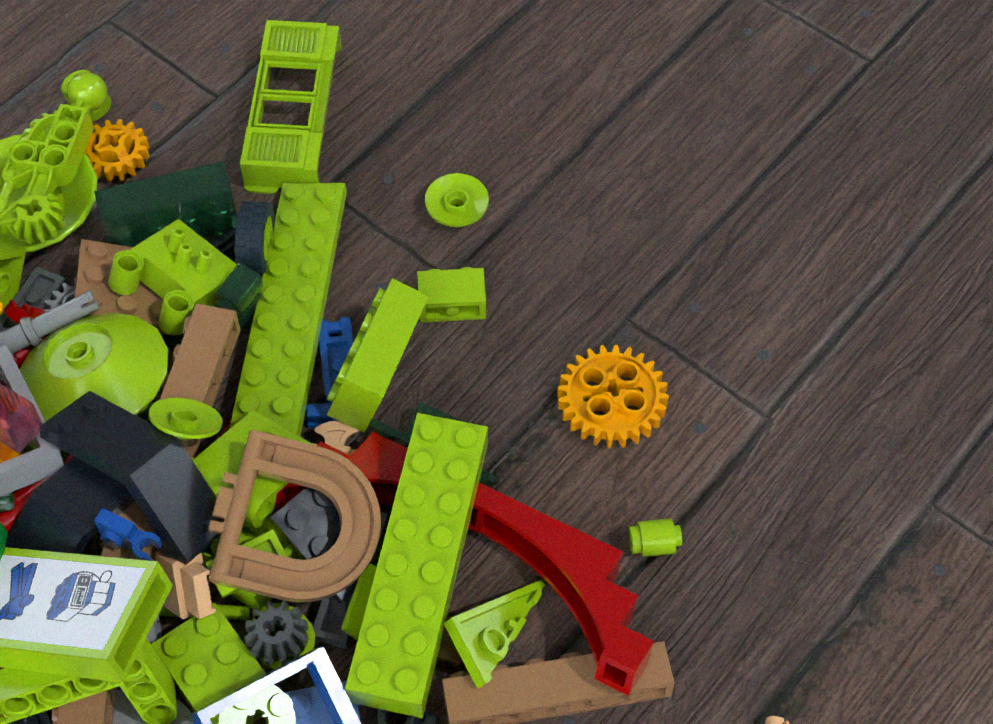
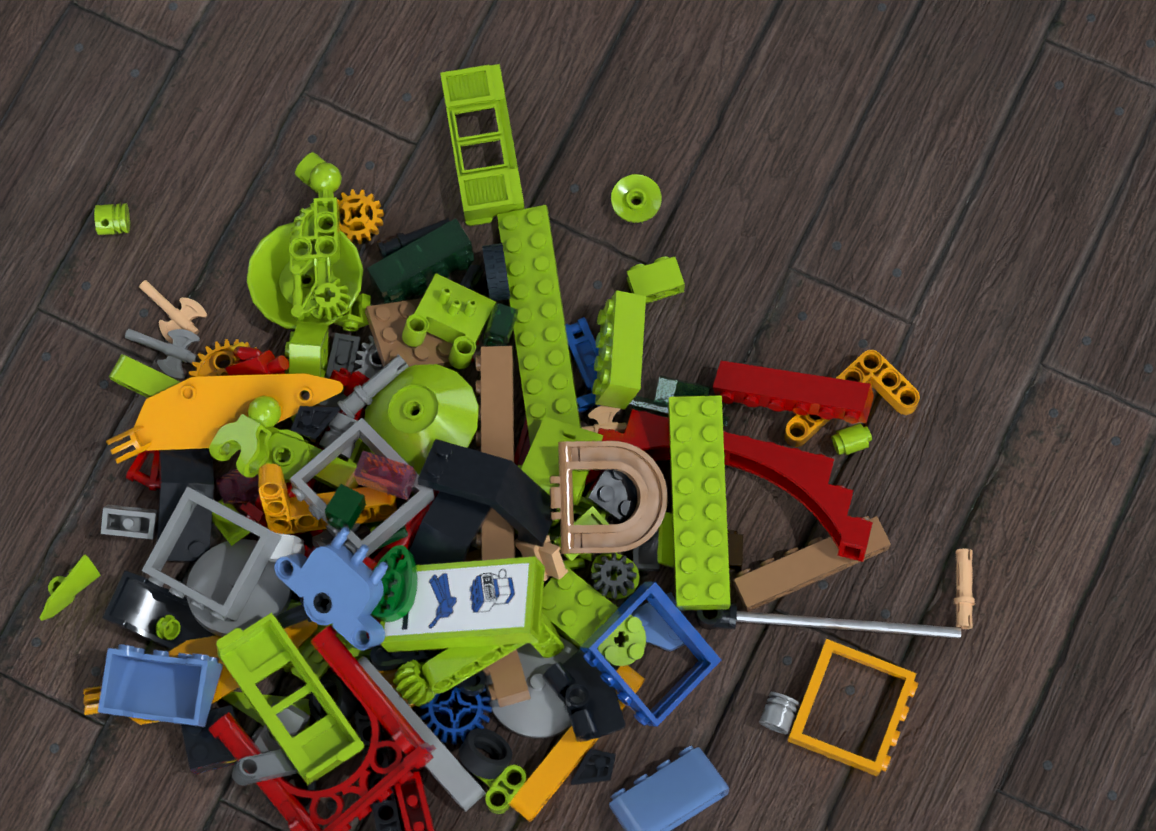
camera: 10 degrees left, 15 degrees up
(66, 257) = (356, 315): none -> lime bracket
(121, 532) = (492, 537): blue plate -> none
(185, 418) = (509, 442): lime dish -> none
(487, 630) = (756, 538): lime wing -> none
(592, 455) = (793, 392): none -> red brick
(619, 421) = (784, 316): light orange gear -> none
(665, 479) = (862, 374): none -> light orange beam

